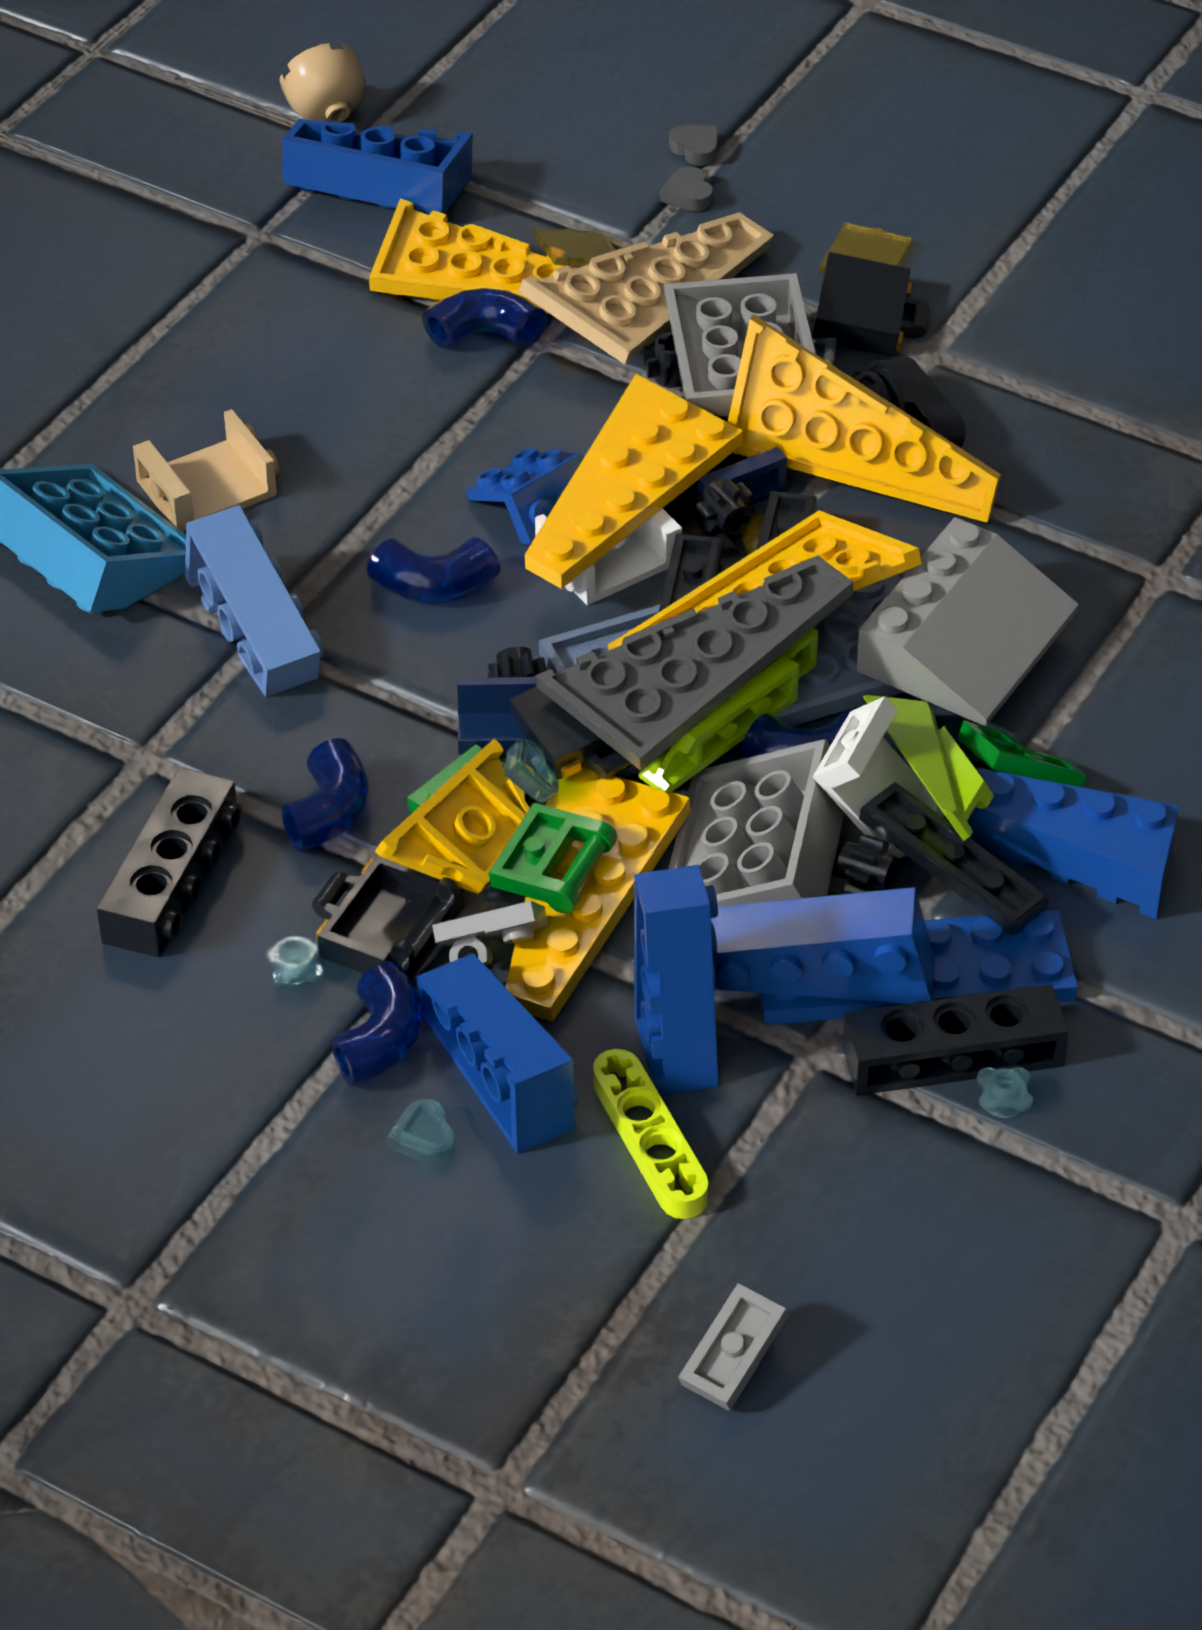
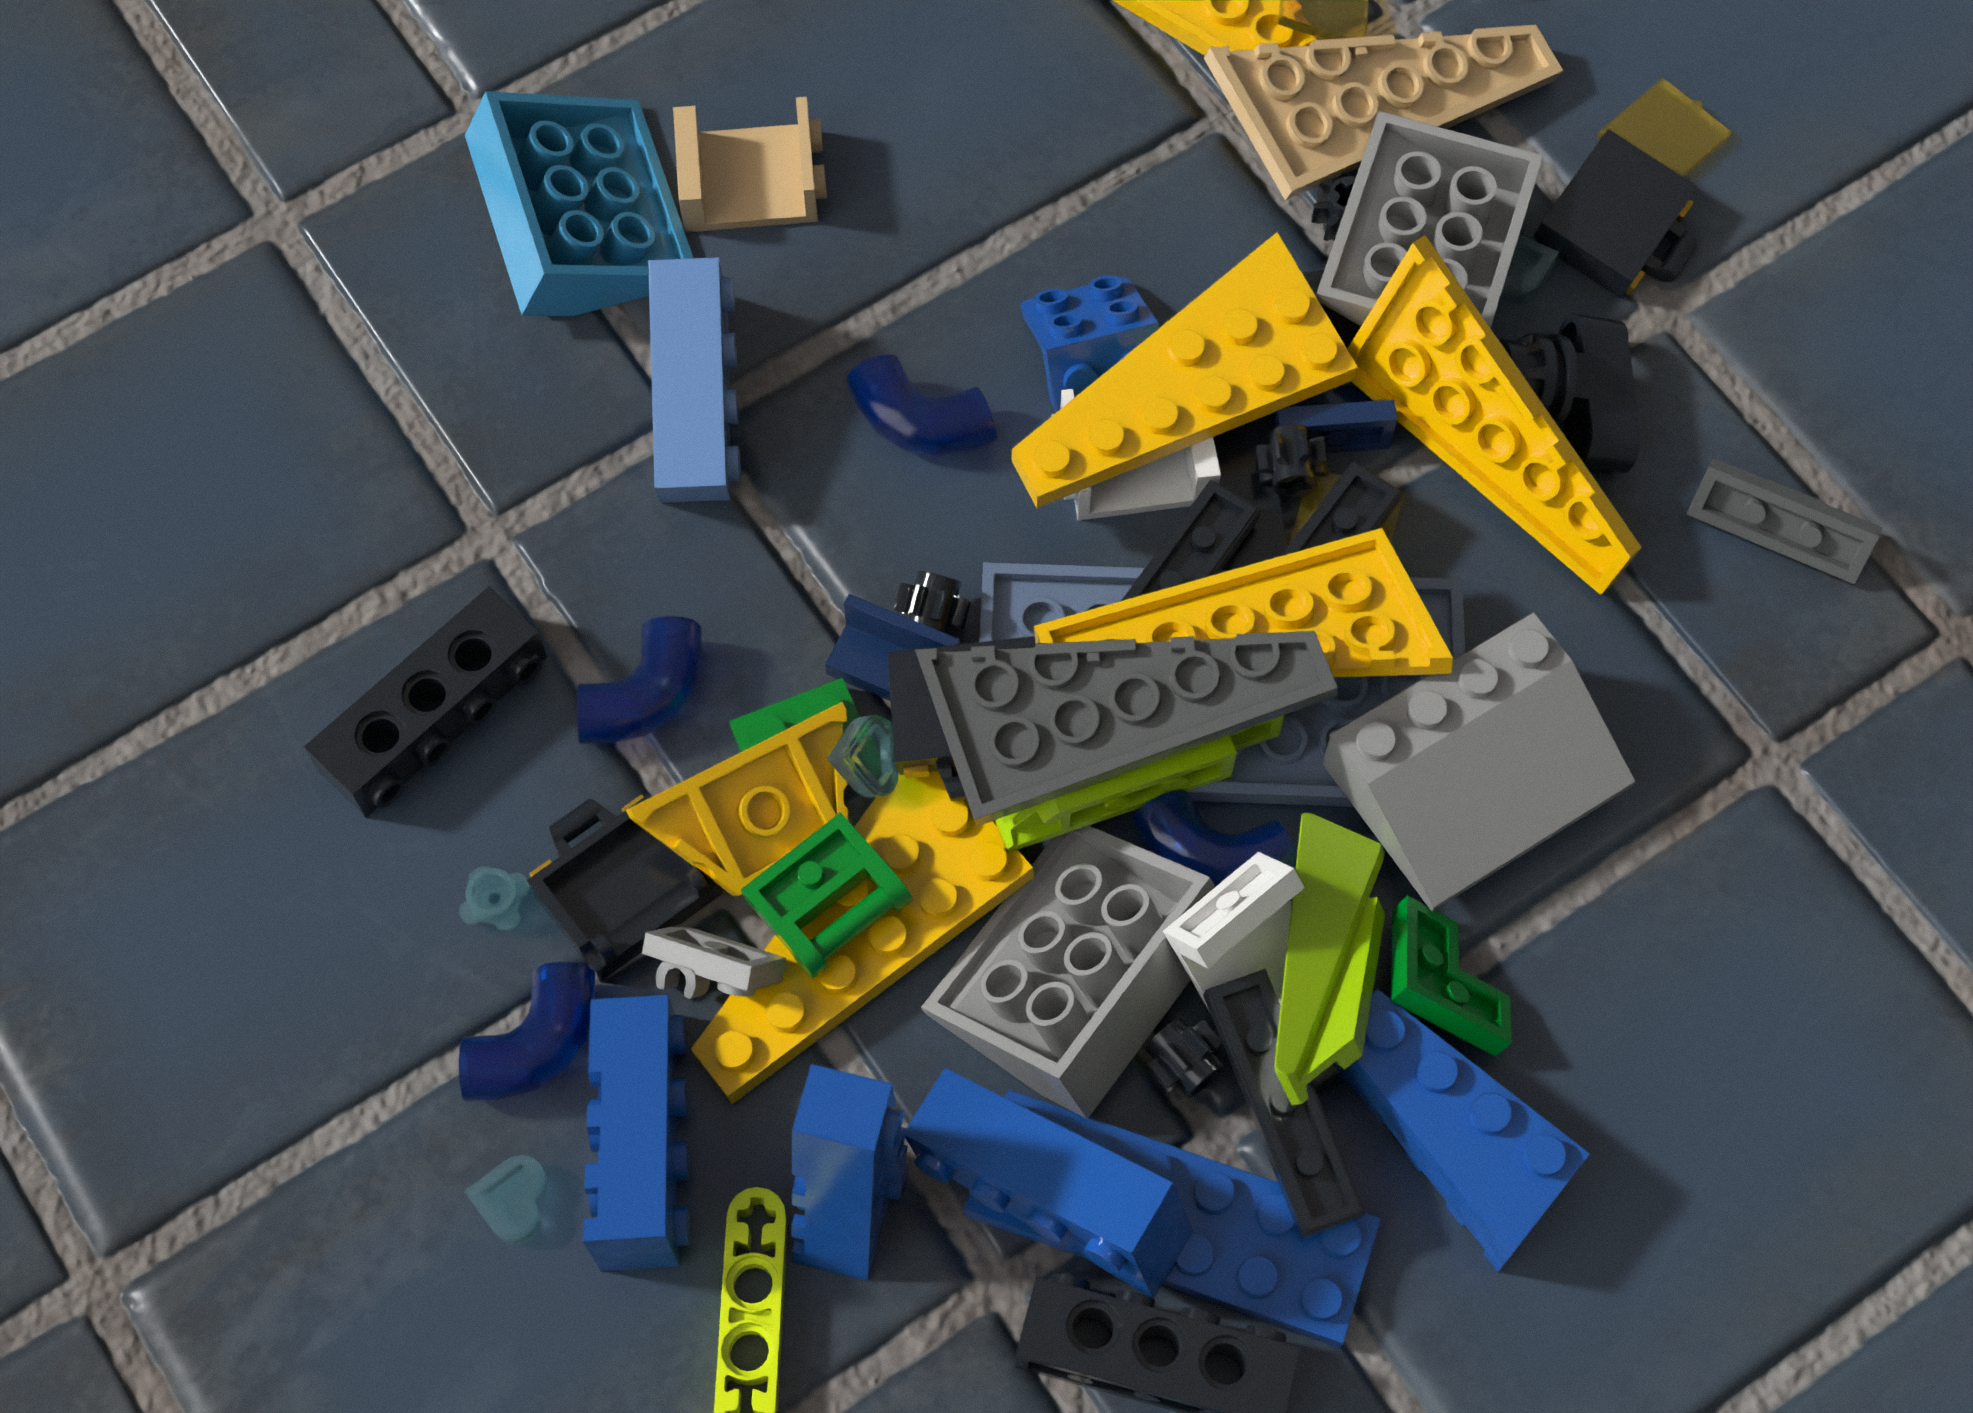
camera: 25 degrees right, 20 degrees up
(481, 312) = (1165, 55): clear blue cylinder -> none
(1086, 435) = (1784, 520): none -> dark grey plate

